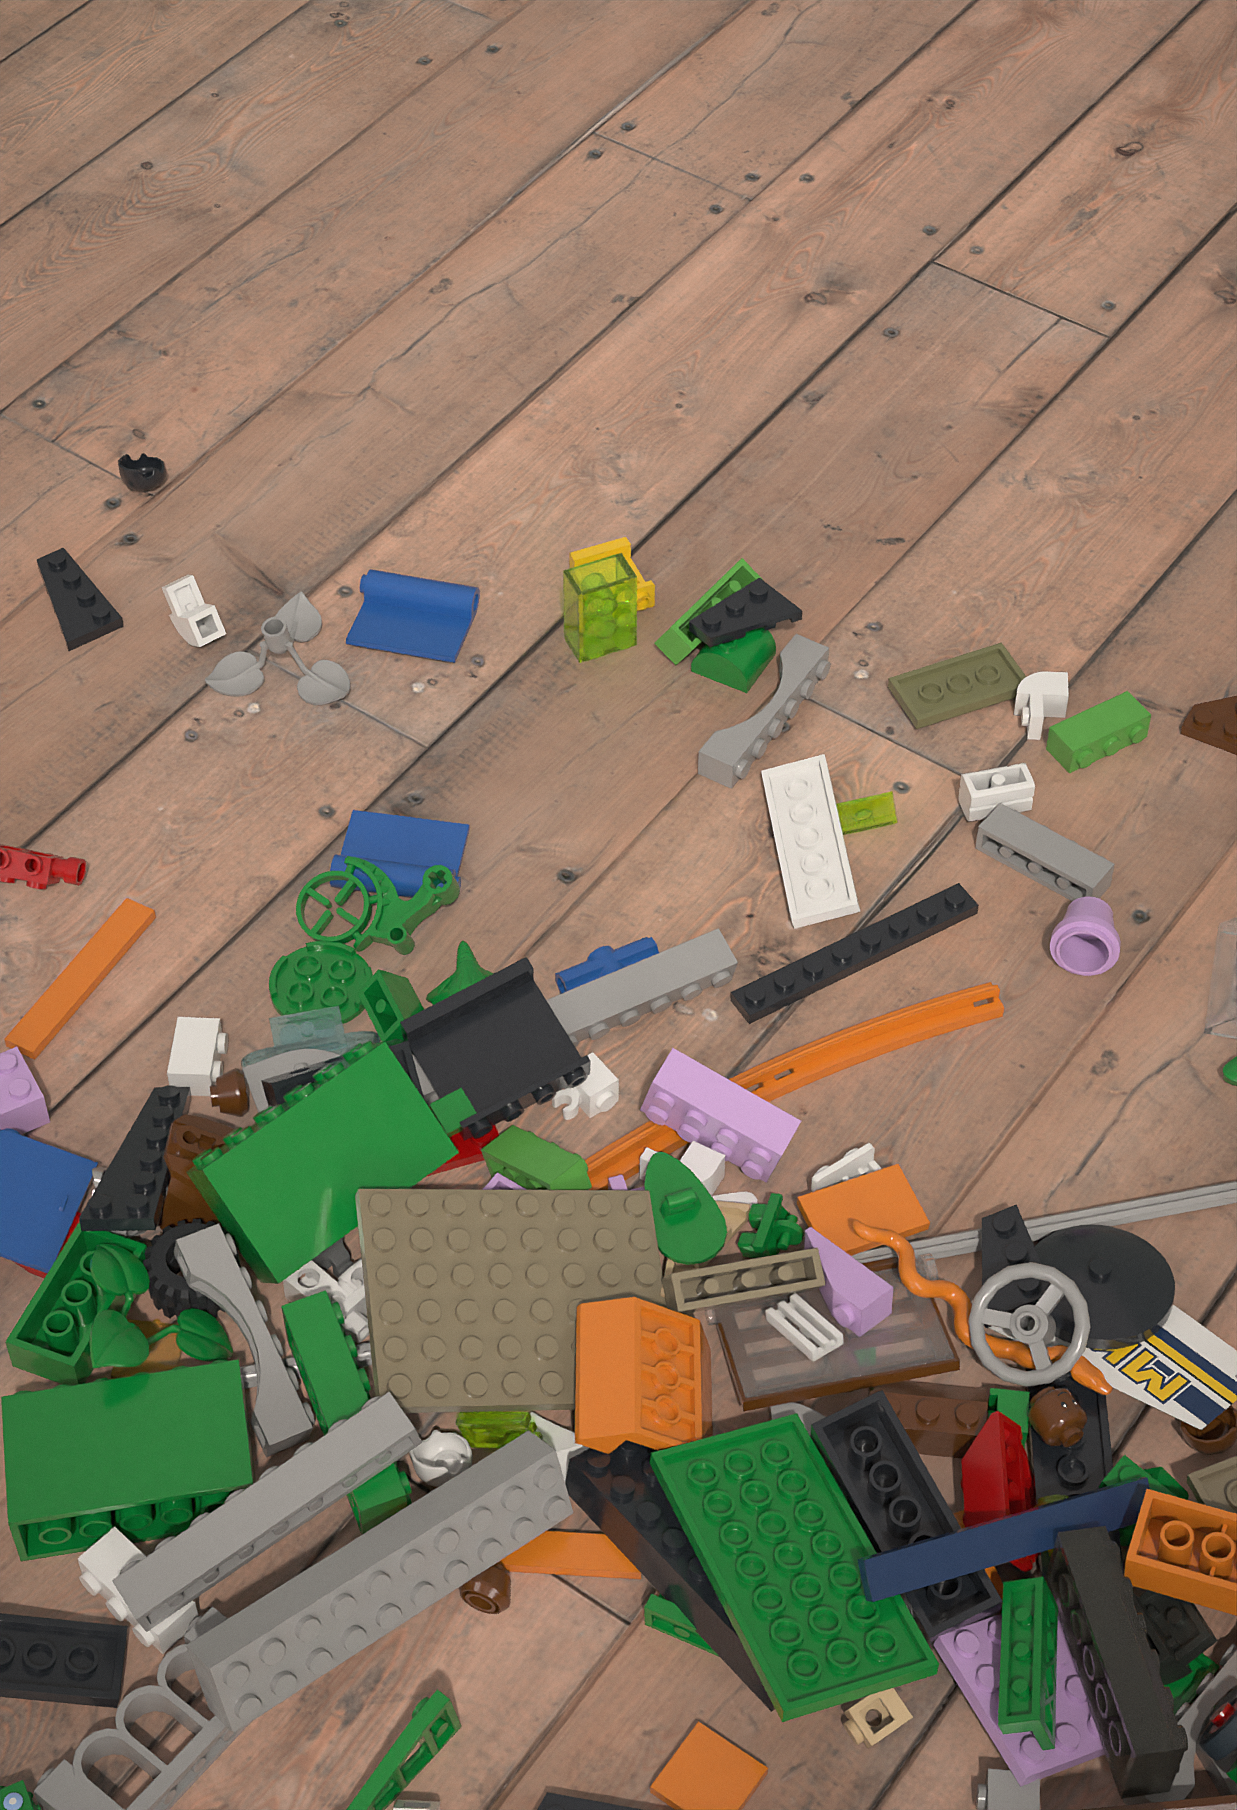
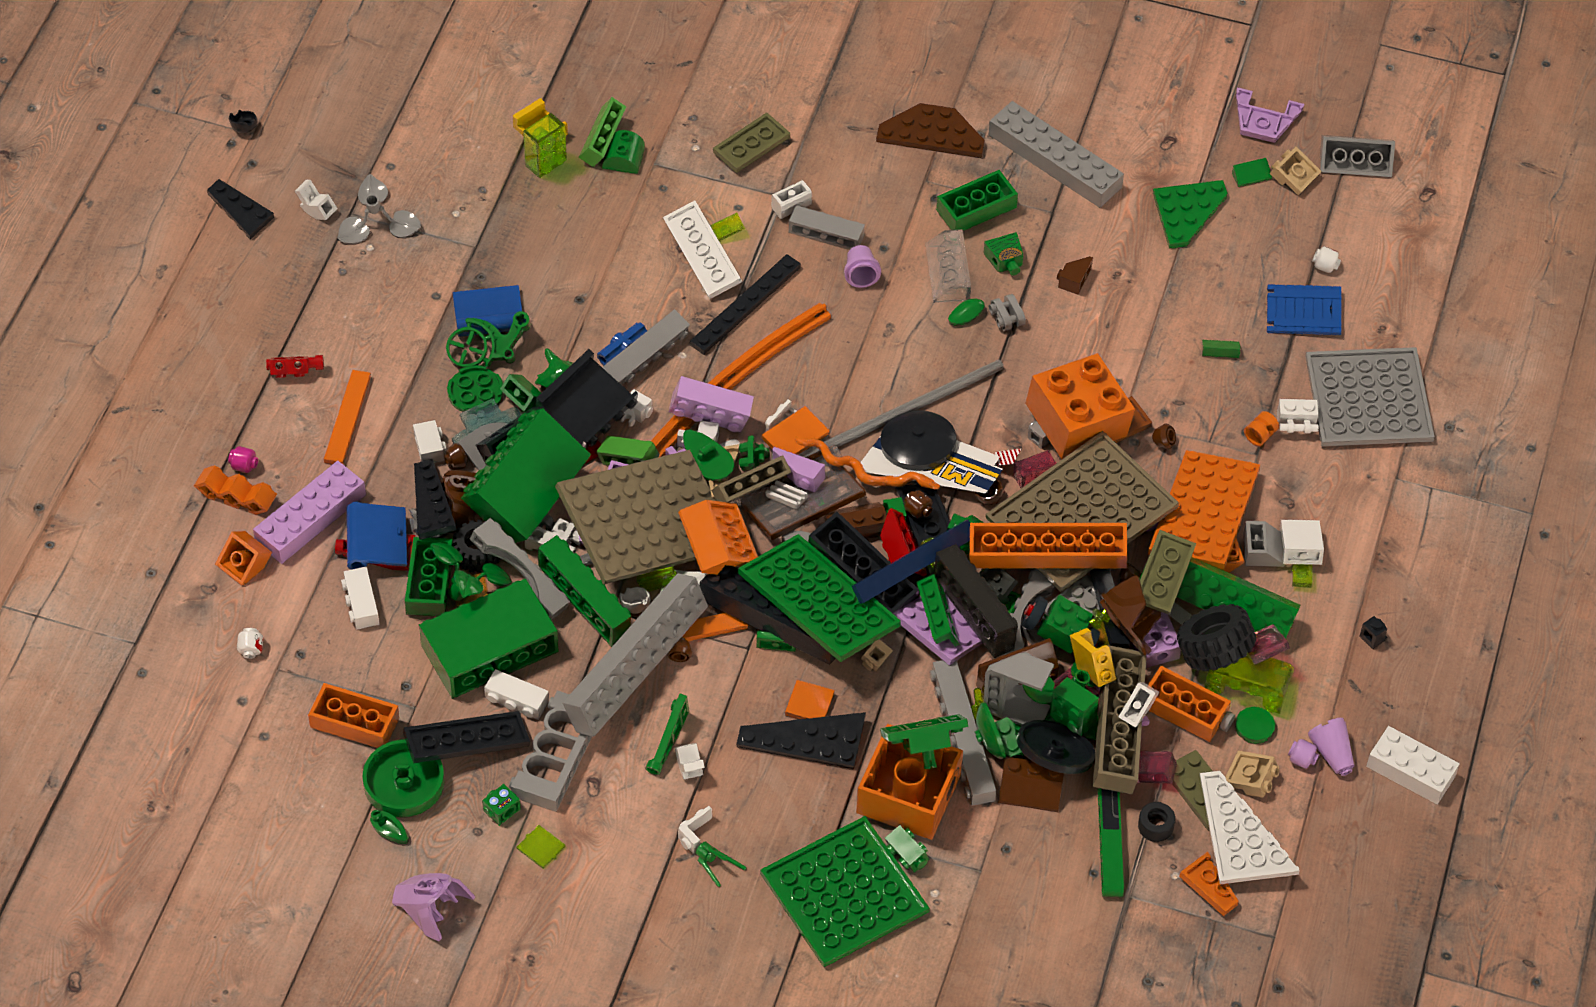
camera: 20 degrees left, 5 degrees up
(266, 1511) = (570, 639): light grey brick -> none
(414, 615) = (437, 172): blue door -> none
(452, 1110) = (578, 433): green tile -> none
(733, 750) = (643, 209): light grey arch -> none
(745, 610) = (624, 129): black wing -> none
(1007, 1244) = (875, 442): black wing -> none
(1020, 1320) = (898, 470): light grey piece -> none
(1040, 697) = (796, 139): white brick -> none
(1098, 732) = (834, 152): bright green brick -> none

